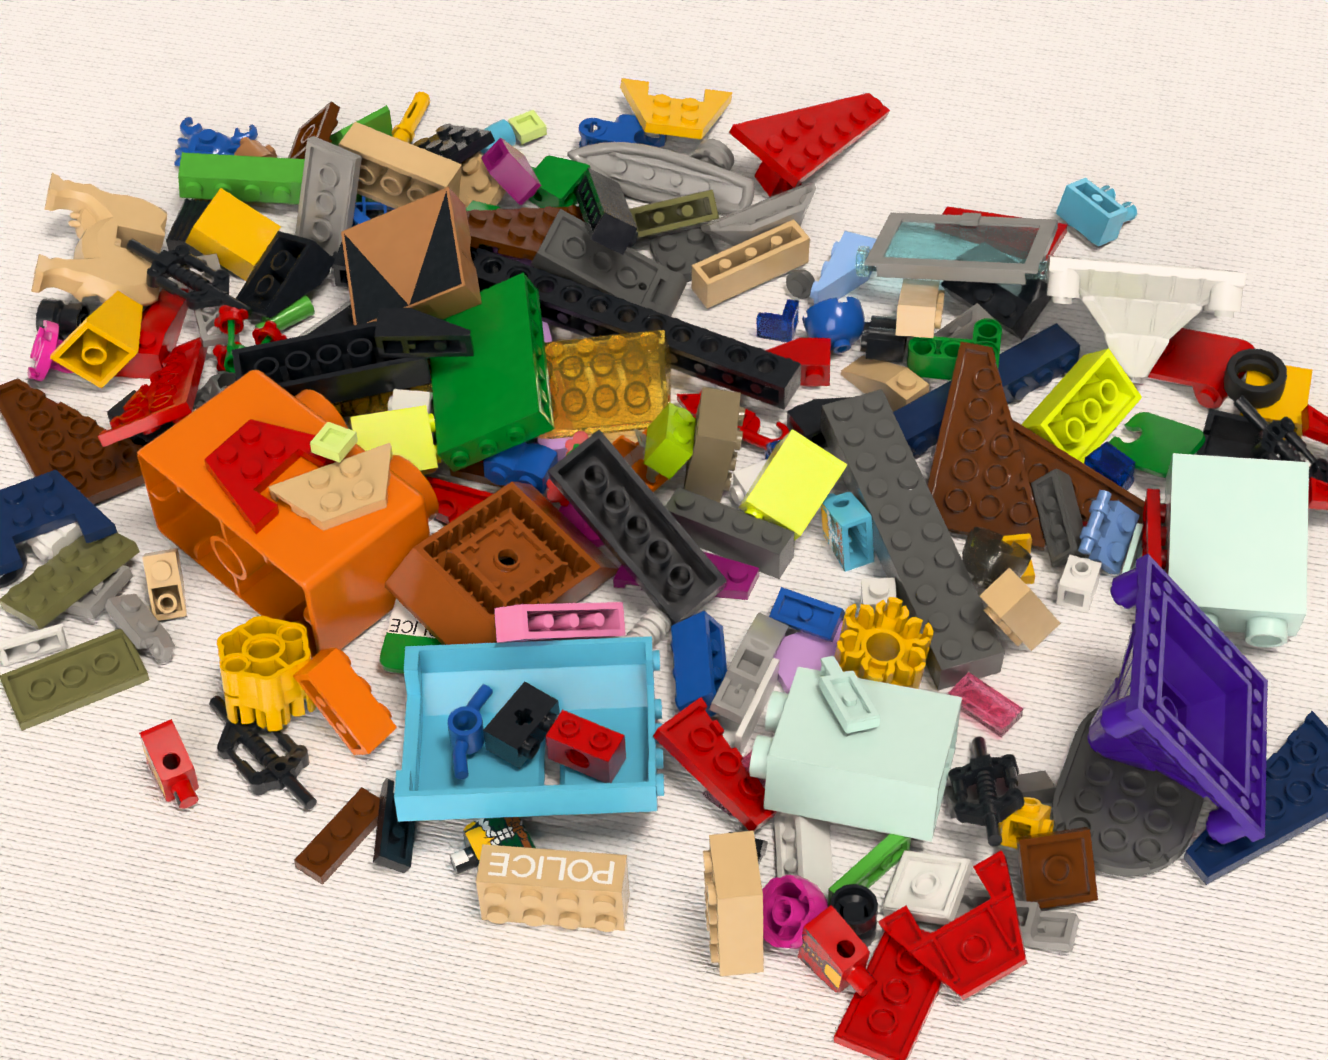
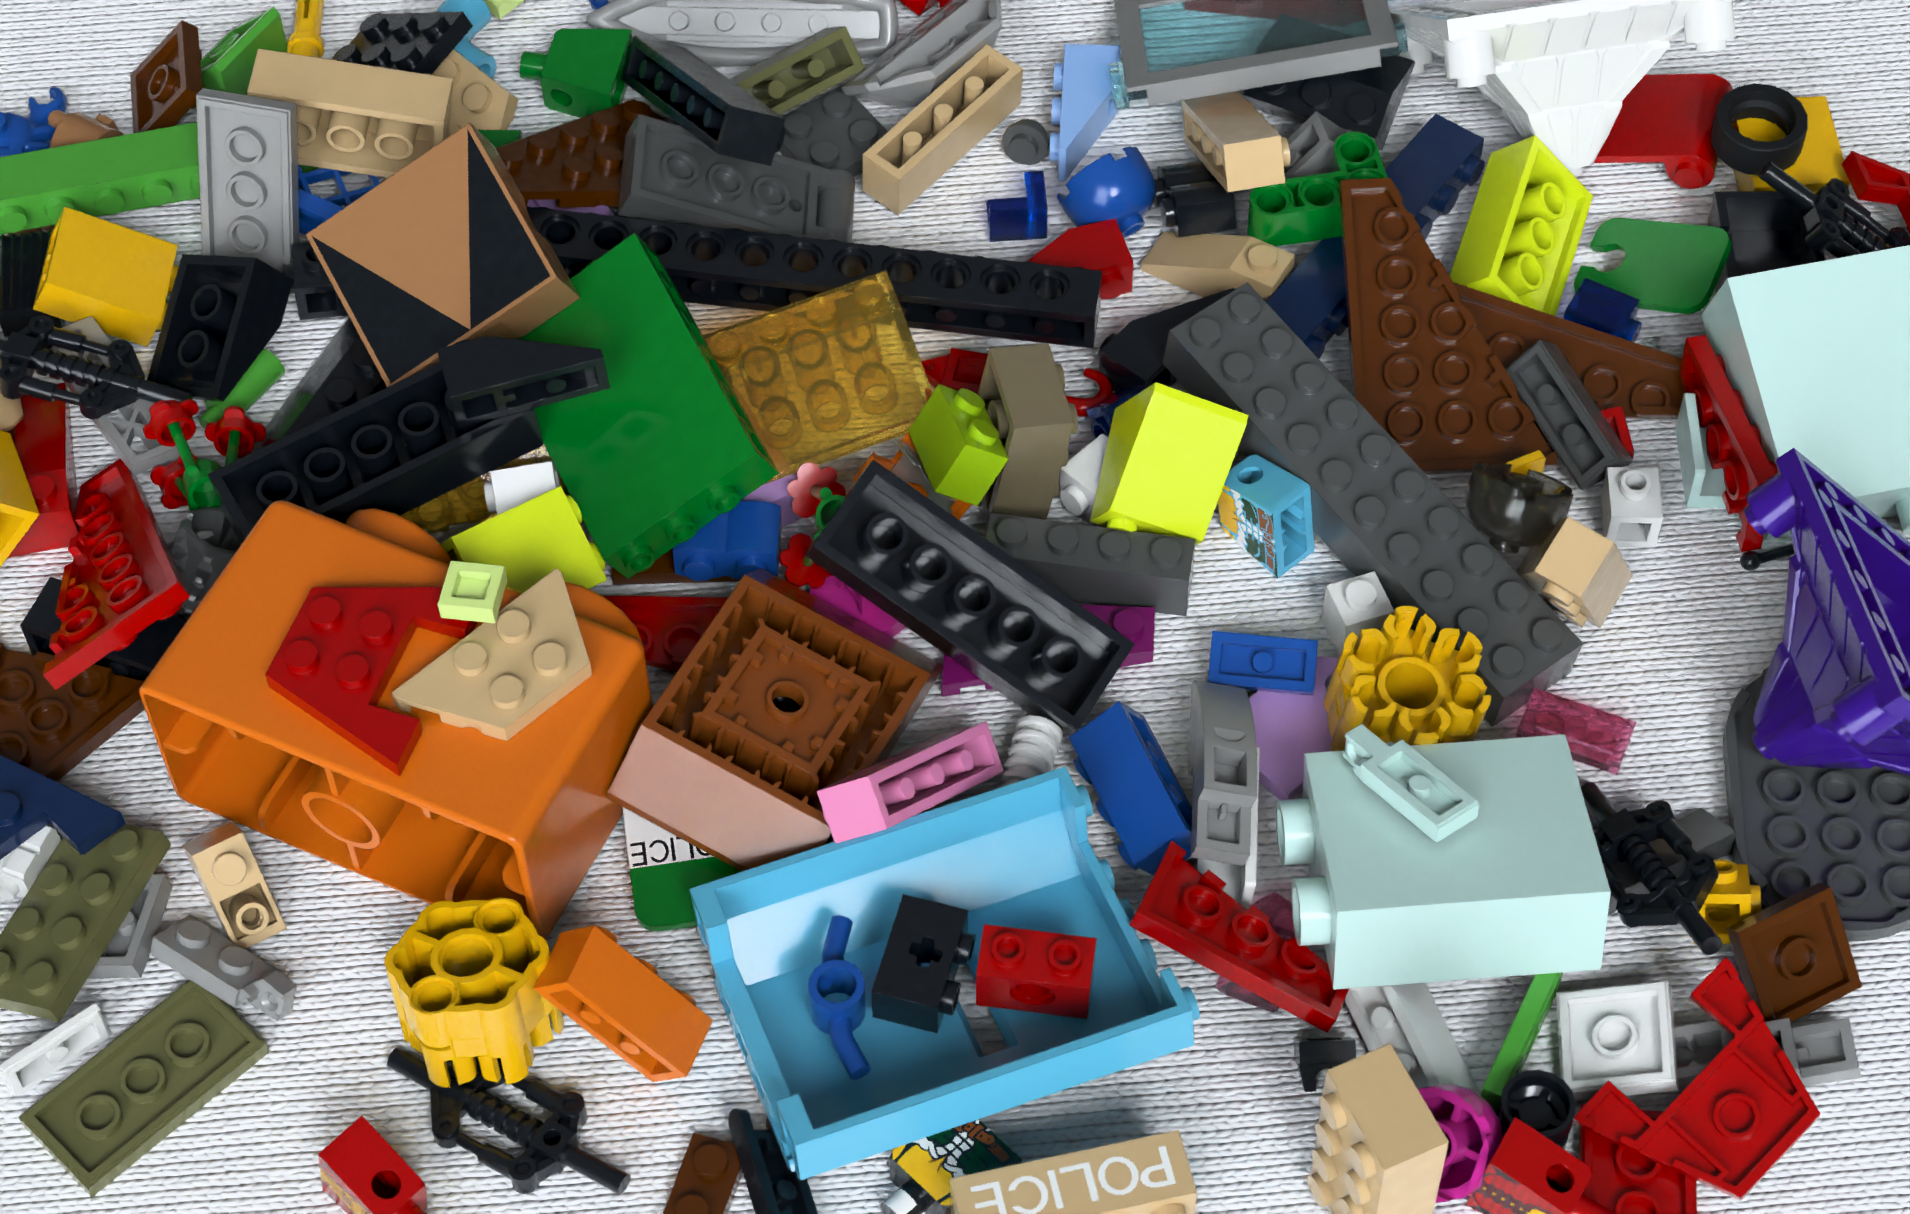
camera: 20 degrees left, 5 degrees up
(511, 171) = (519, 69): magenta slope -> none
(1108, 532) = (1648, 417): medium blue plate -> none

